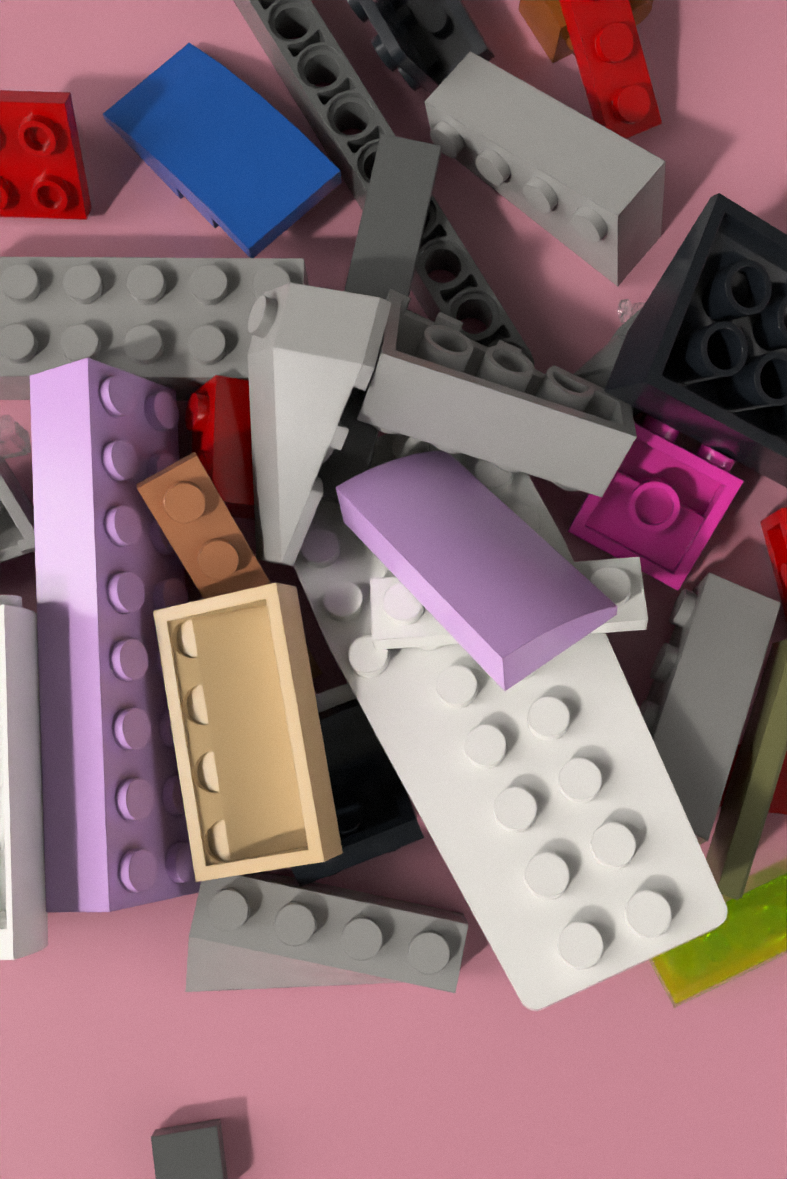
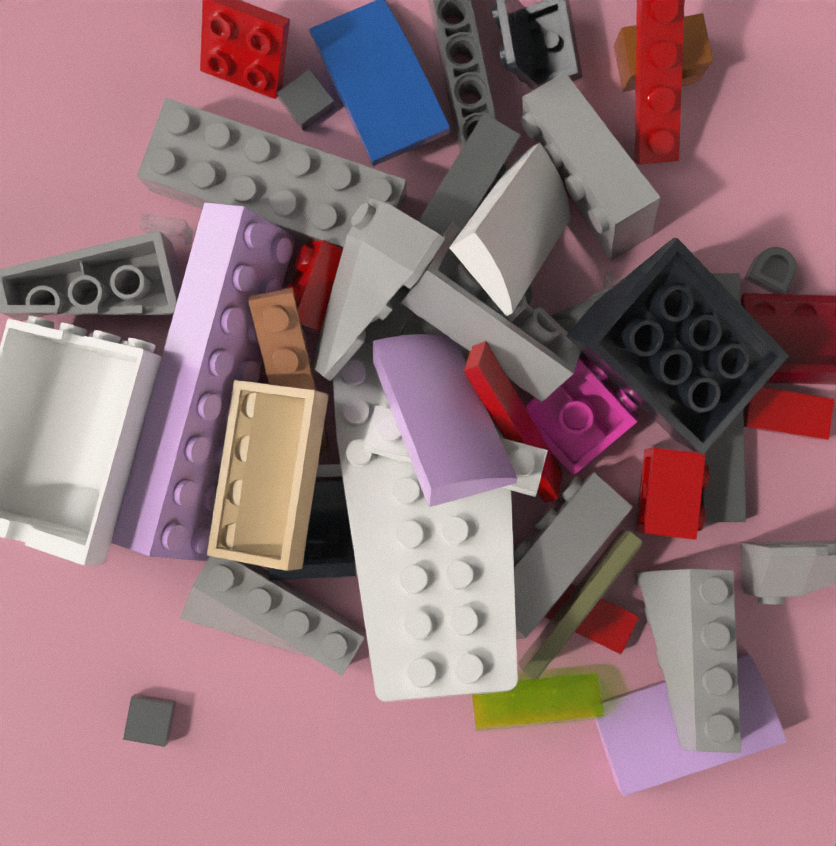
camera: 15 degrees right, 5 degrees up
(129, 207) = (306, 99): none -> dark grey tile
(479, 270) = (515, 228): none -> white slope
(555, 518) = (509, 413): none -> red tile

